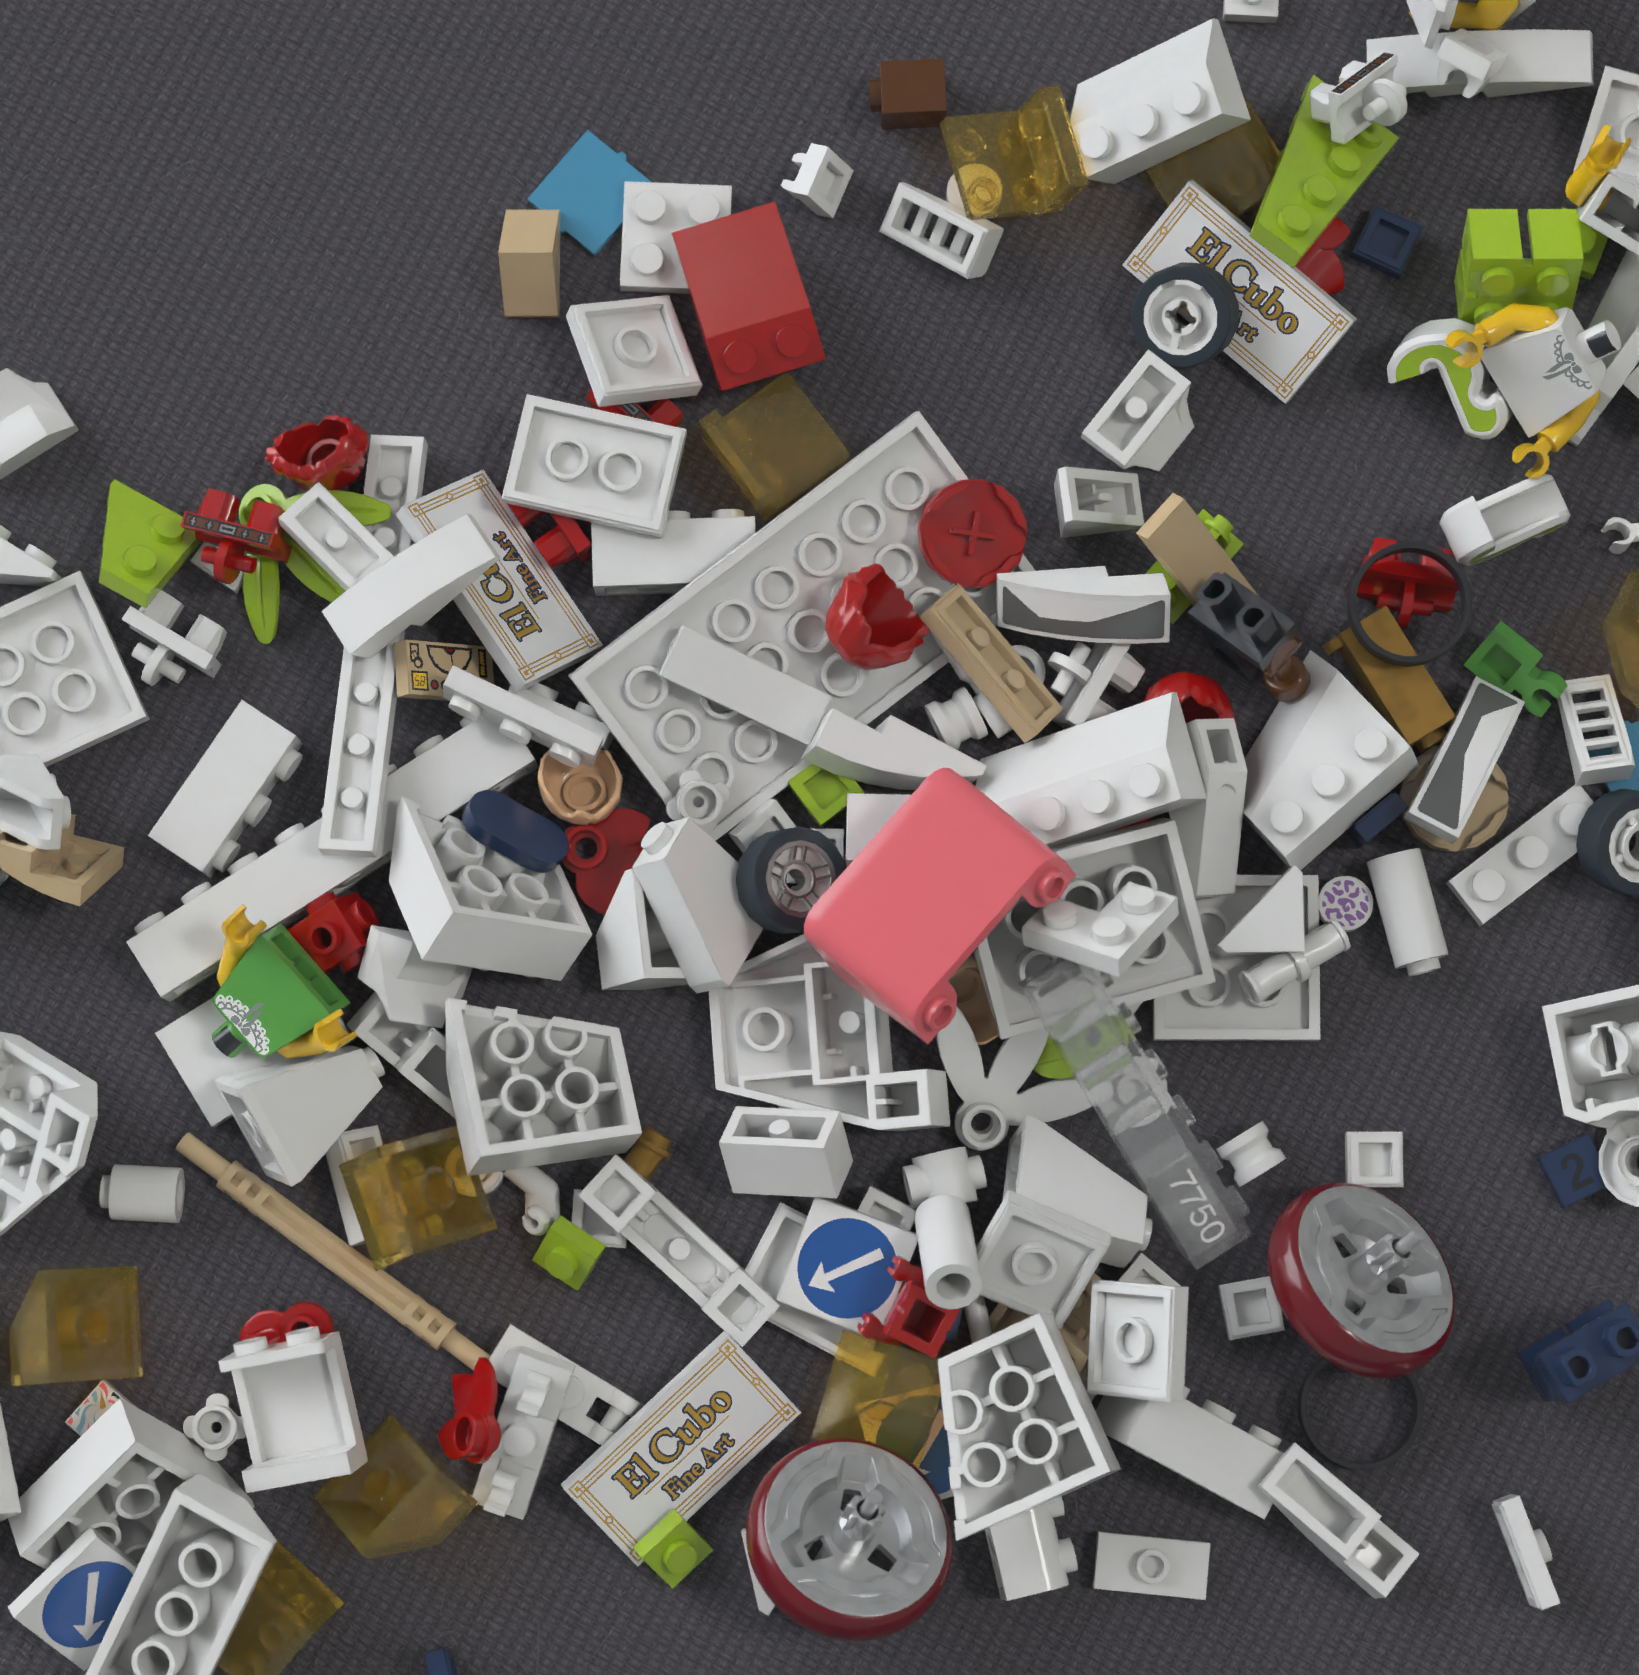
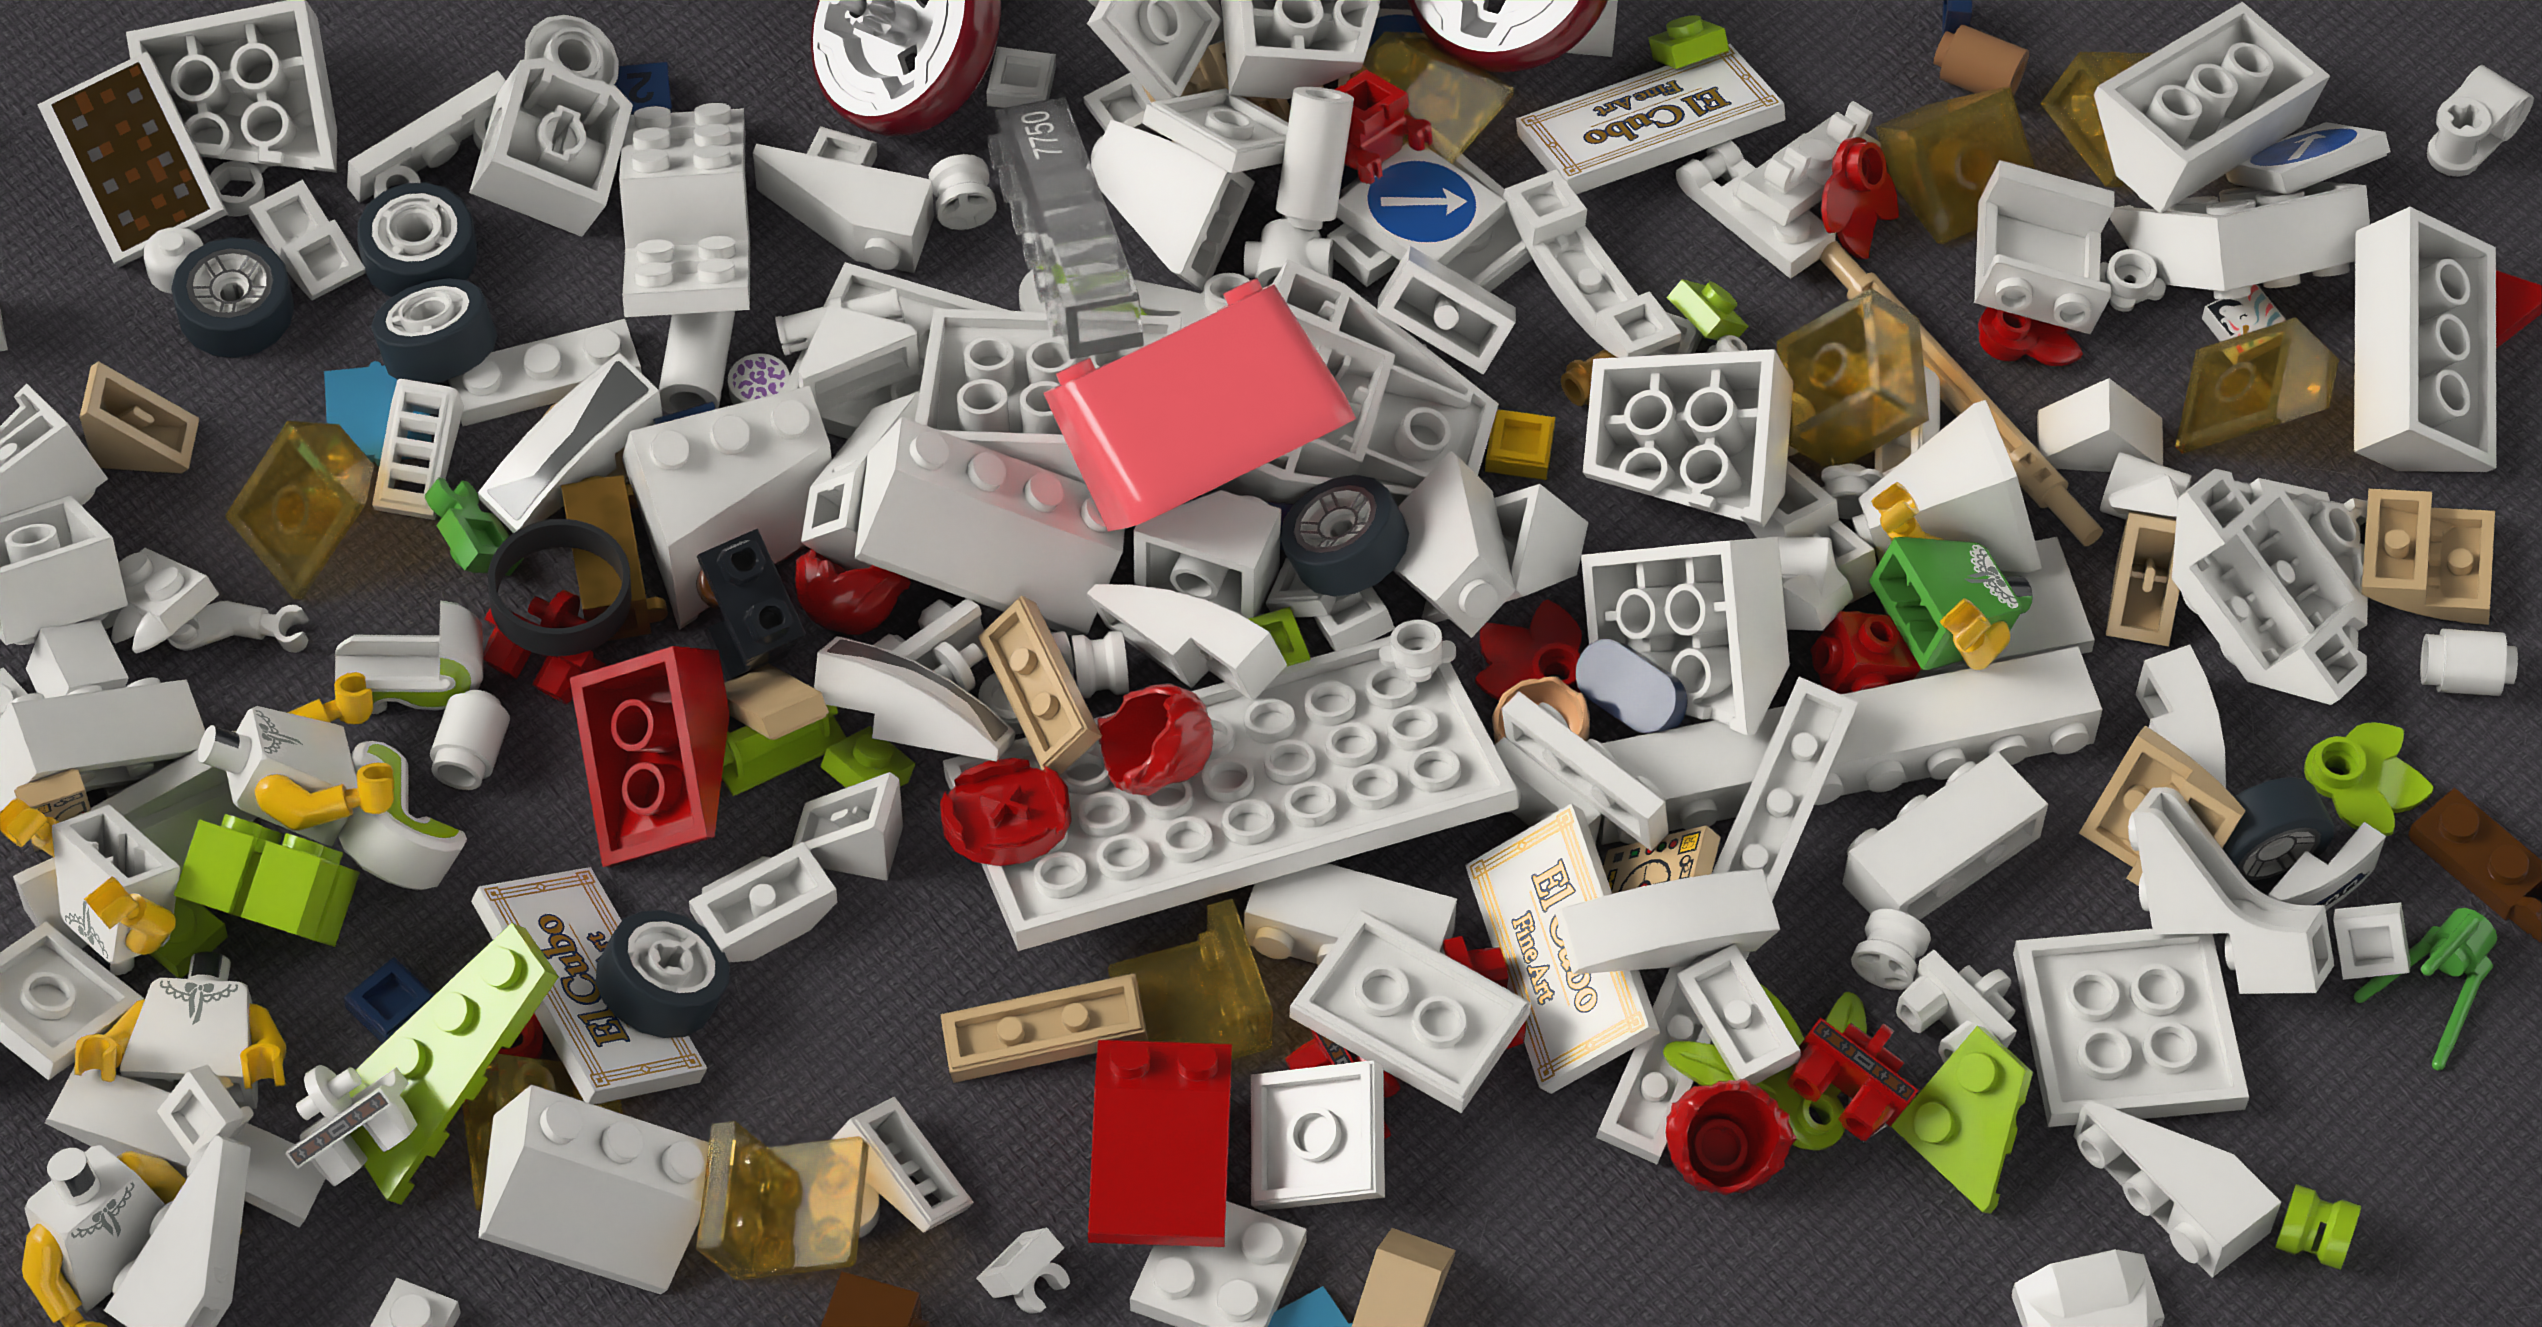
camera: 165 degrees left, 25 degrees down
(53, 956) = (2183, 708): none -> white slope
(125, 1098) = (2143, 586): none -> tan slope
(131, 1153) = (2152, 496): none -> white slope
(201, 1248) = (2095, 426): none -> white slope
(243, 677) = (1891, 949): none -> white wheel
(395, 1108) = (1847, 484): none -> white plate
(405, 1619) = (1980, 61): none -> medium nougat brick
(688, 1071) = (1520, 444): none -> yellow tile
(745, 685) = (1323, 735): white tile -> none
(878, 385) = (1042, 1027): none -> tan tile
(1106, 938) = (1031, 319): white plate -> none
(1108, 552) = (865, 758): none -> lime plate
(1274, 501) = (653, 750): none -> red slope
(1328, 1101) = (857, 208): none -> white slope
(1428, 476) = (469, 739): none -> white brick
(1473, 1028) = (685, 212): none -> white bracket
(1515, 142) = (187, 1027): none -> torso

